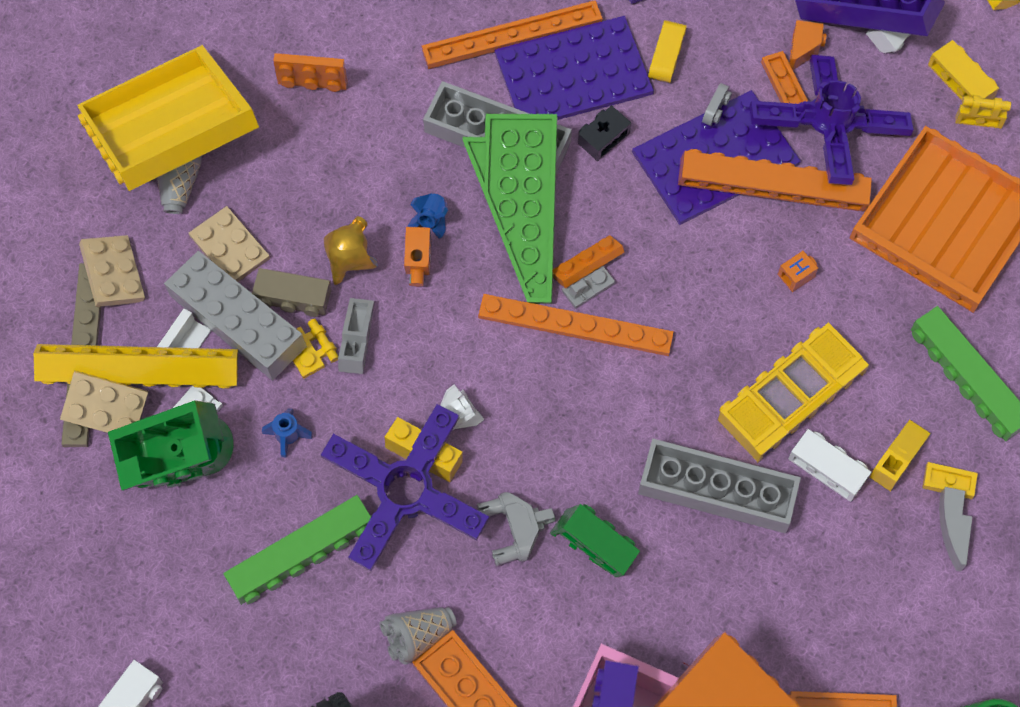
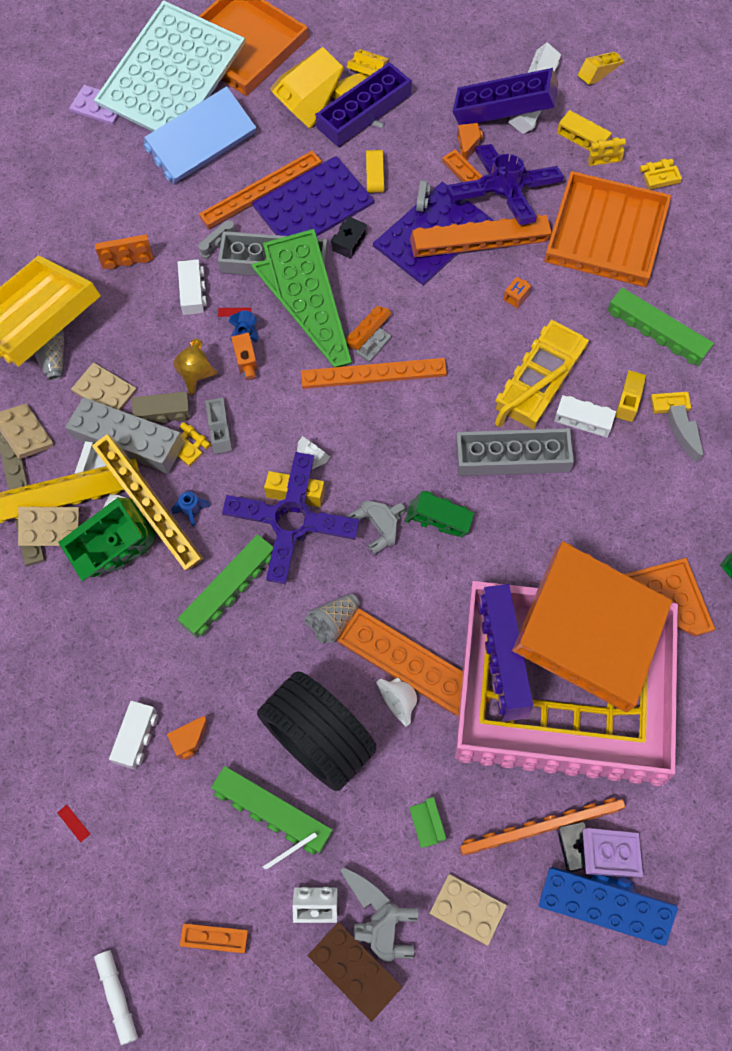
camera: 15 degrees left, 0 degrees up
(233, 414) = (148, 502): none -> yellow brick
(381, 142) = (191, 287): none -> white brick
(423, 189) = (227, 312): none -> red window
(429, 86) = (213, 241): none -> light grey plate
(718, 435) = (500, 420): none -> yellow piece

